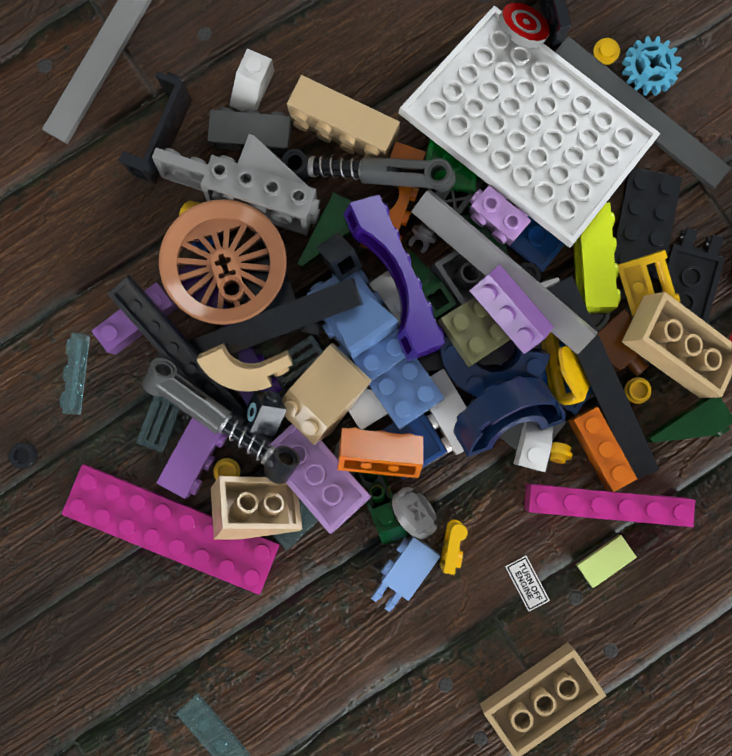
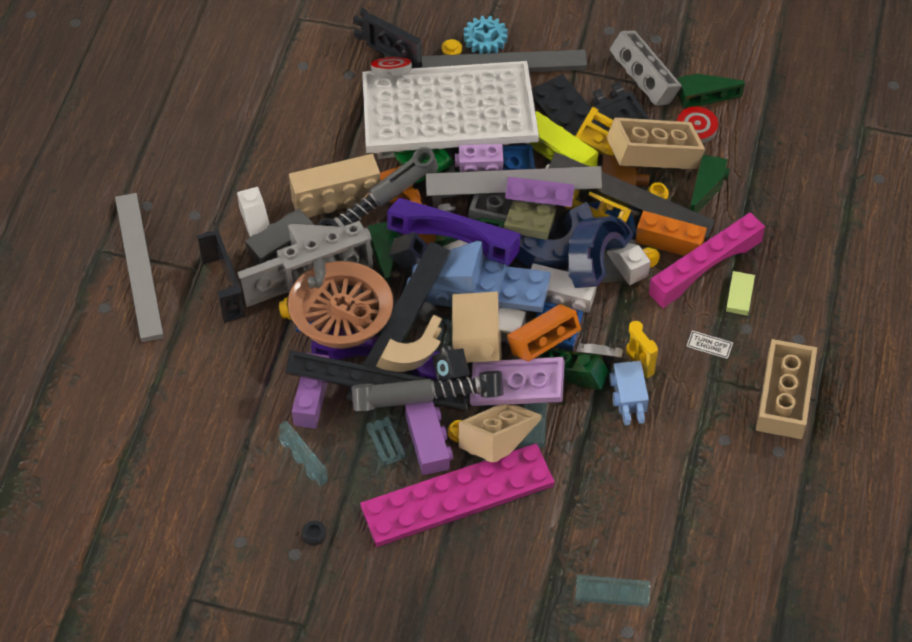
camera: 45 degrees left, 30 degrees down
(229, 214) = (320, 272): none -> dark grey arm

